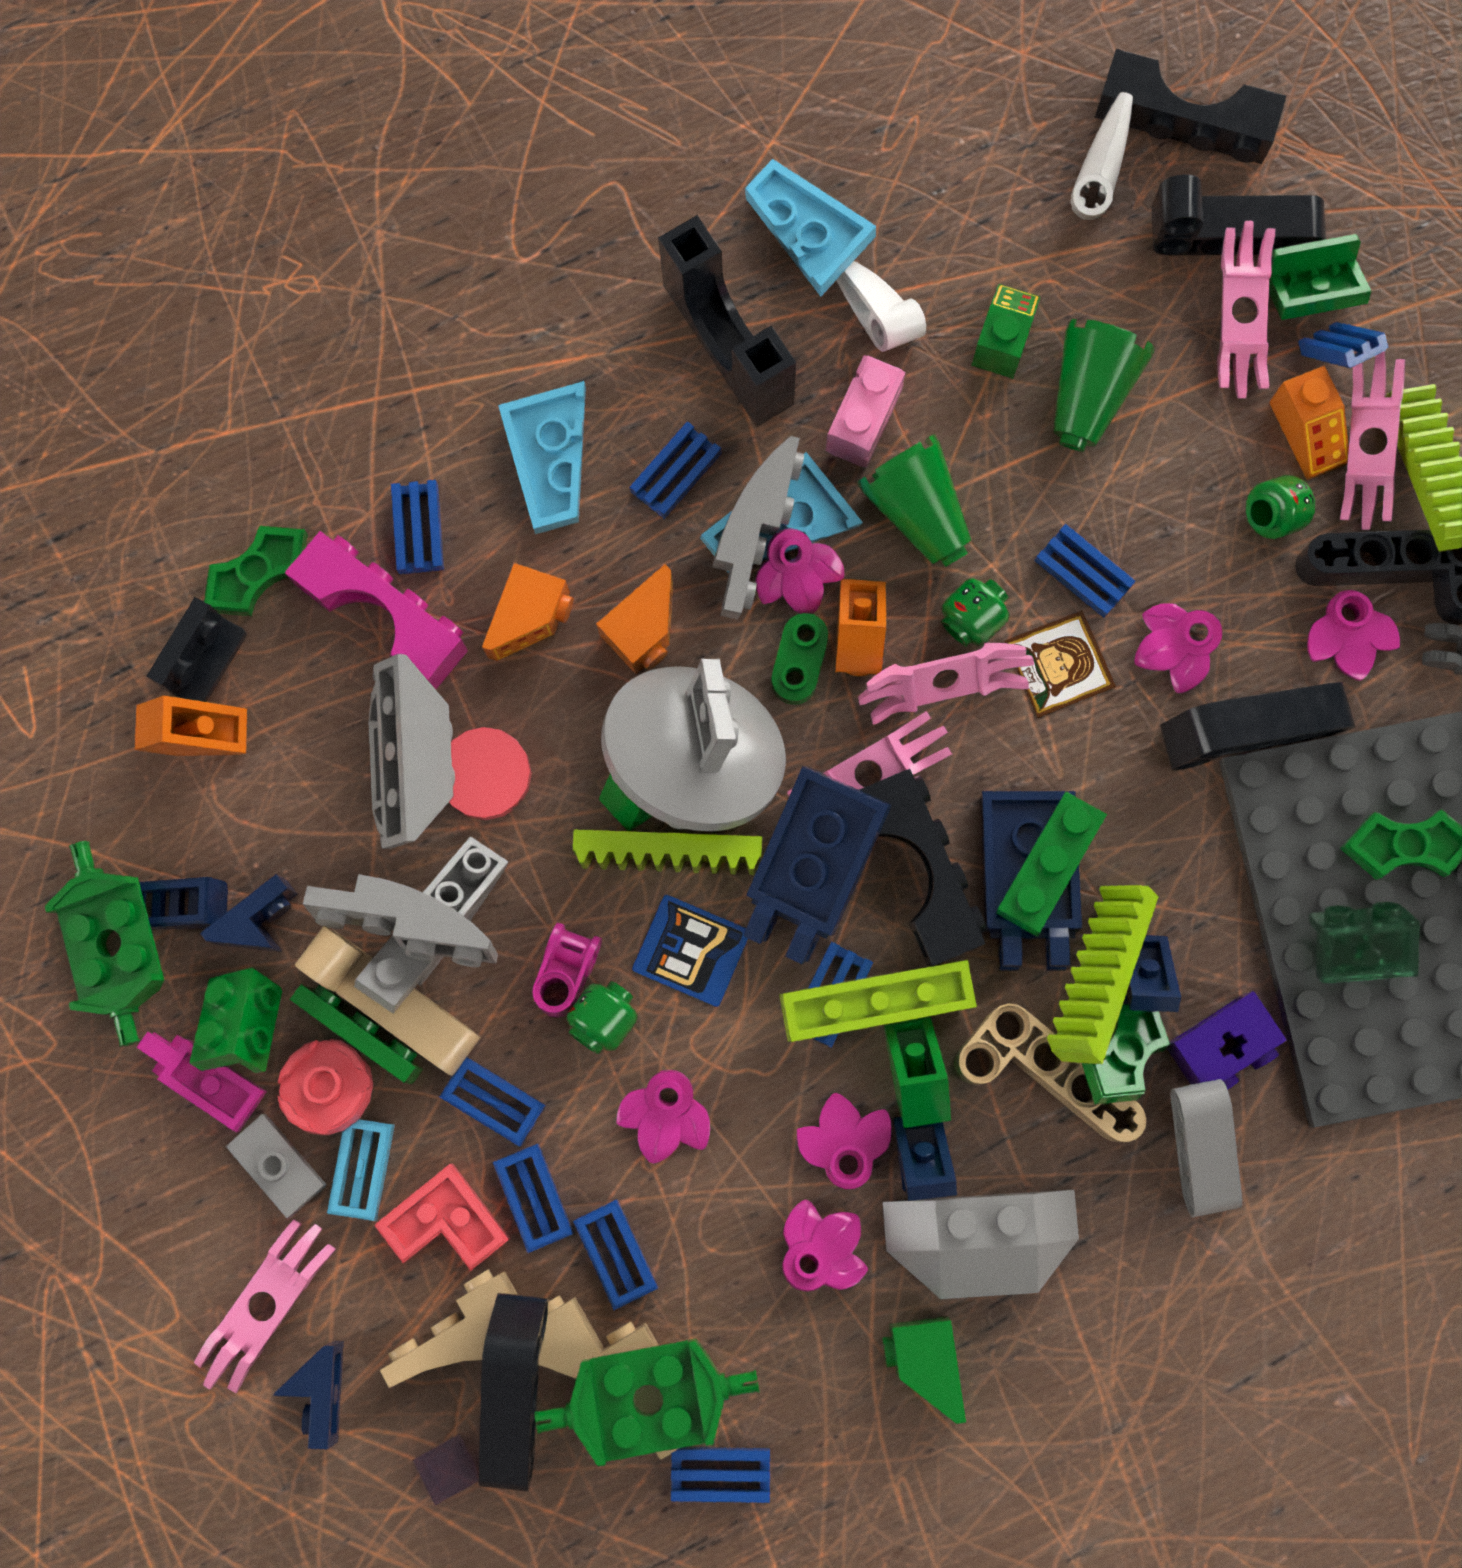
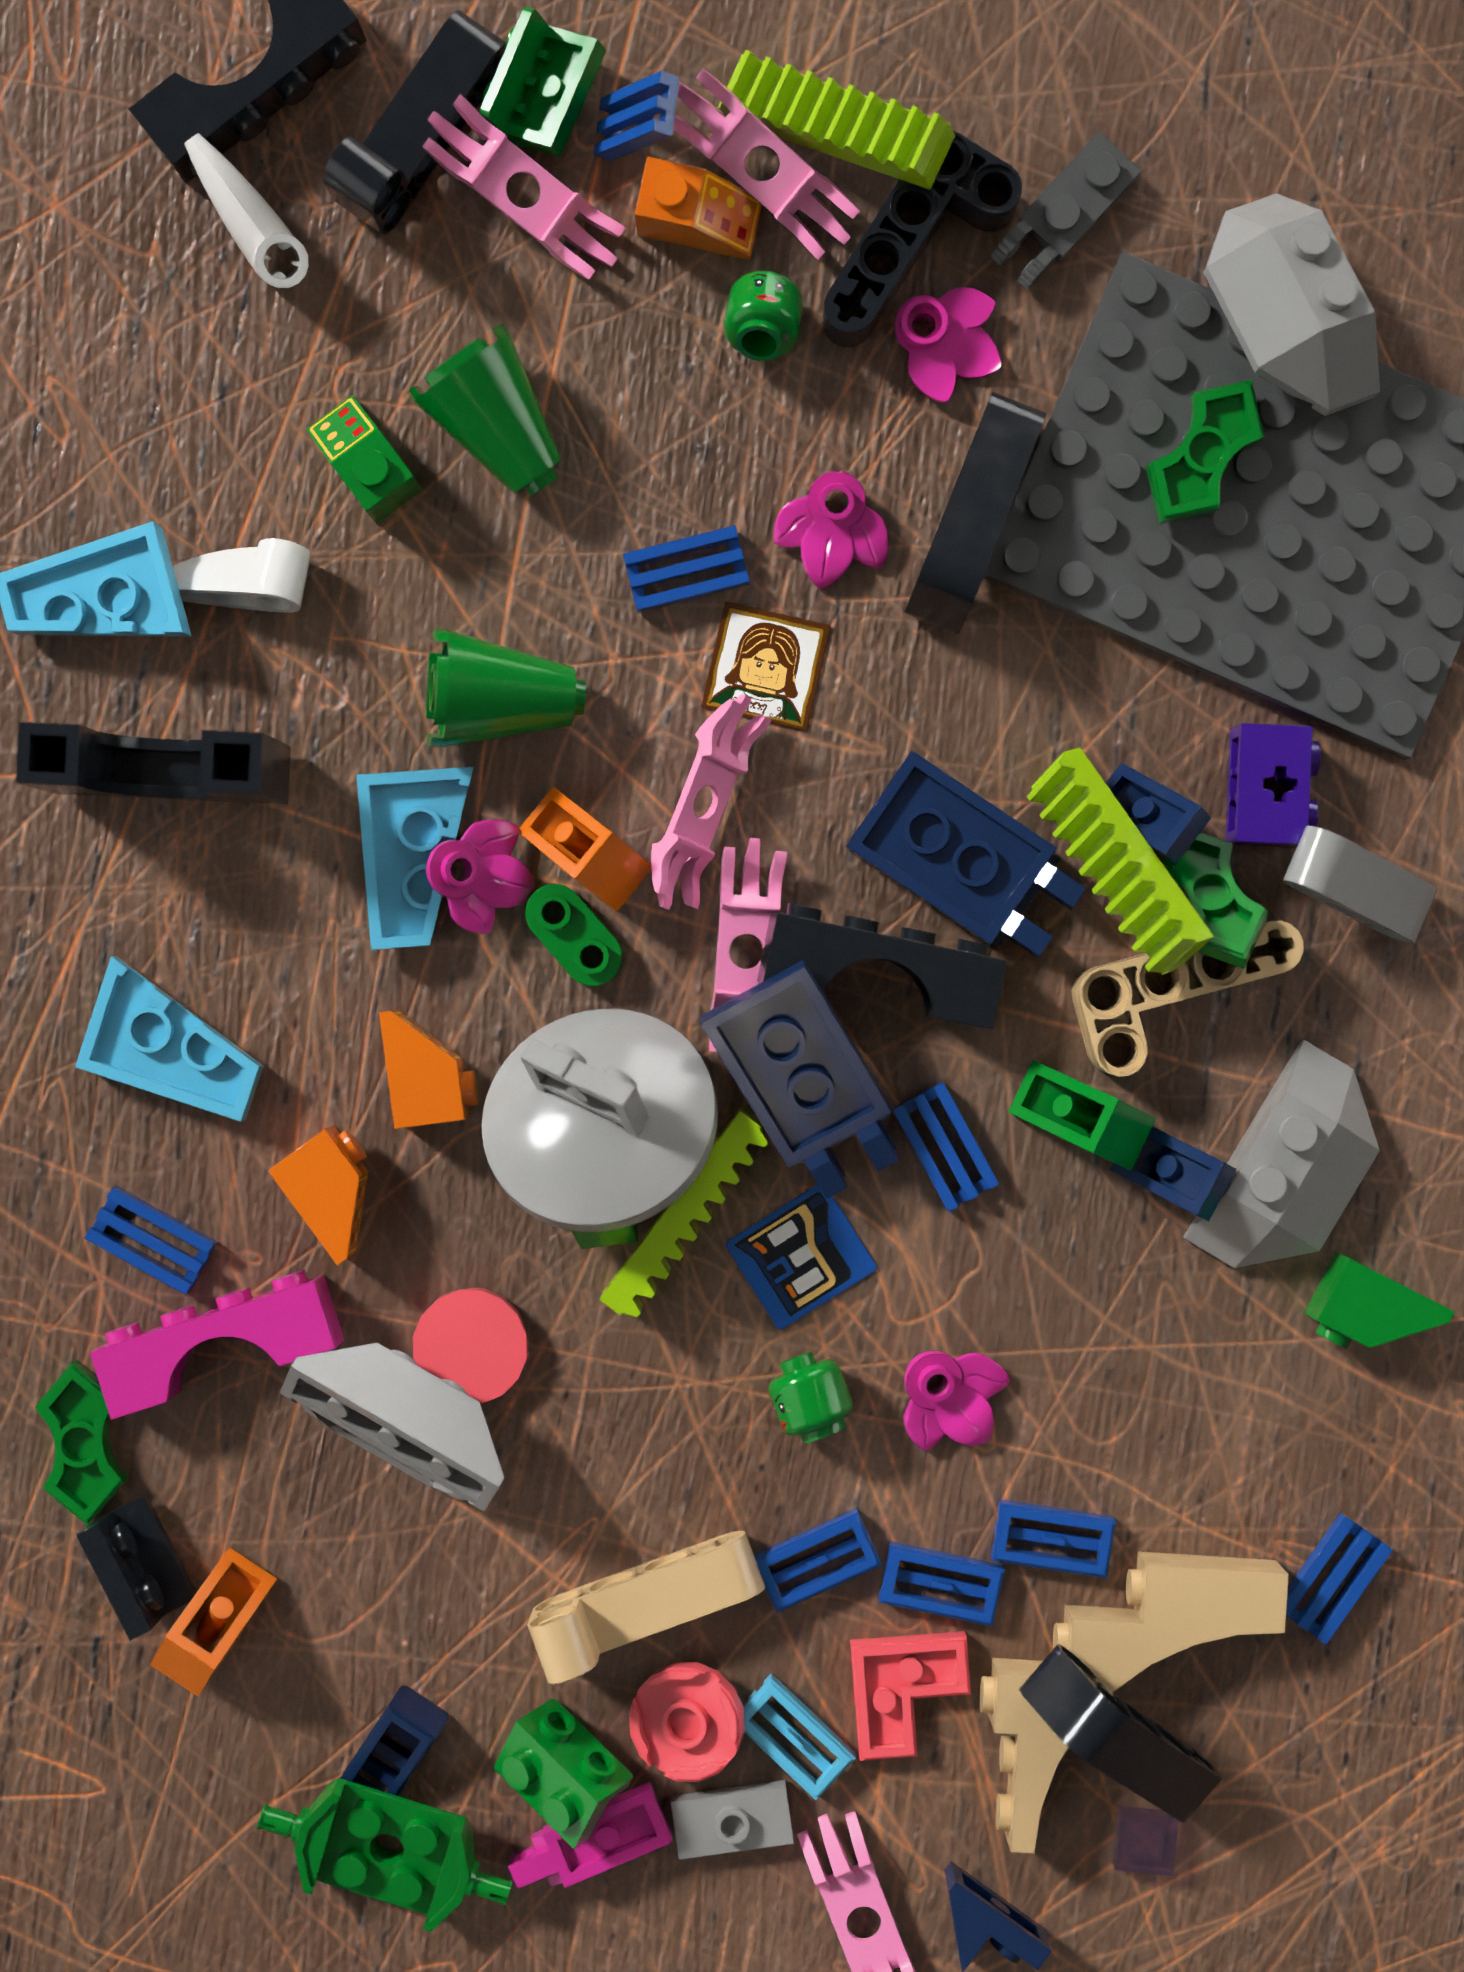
camera: 55 degrees left, 10 degrees up
(242, 924) = (464, 1698): dark blue slope -> none
(358, 1031) = (659, 1655): green plate -> none
(418, 920) = (591, 1529): light grey slope -> none
(462, 886) = (597, 1508): light grey slope -> none
(565, 967) = (732, 1399): dark pink piece -> none
(613, 1426) = (1223, 1660): green plate -> none
(699, 441) = (263, 876): blue tile -> none
(758, 510) = (386, 869): light grey slope -> none
(827, 1243) = (1189, 1322): dark pink plate -> none
(843, 1134) = (1092, 1230): dark pink plate -> none
(865, 411) = (353, 679): bright pink brick -> none
(877, 1000) = (987, 1109): lime gear -> none
(975, 612) = (653, 719): green head -> none
(1051, 864) = (971, 832): green plate -> none
(1366, 943) = (1272, 573): clear green bracket -> none

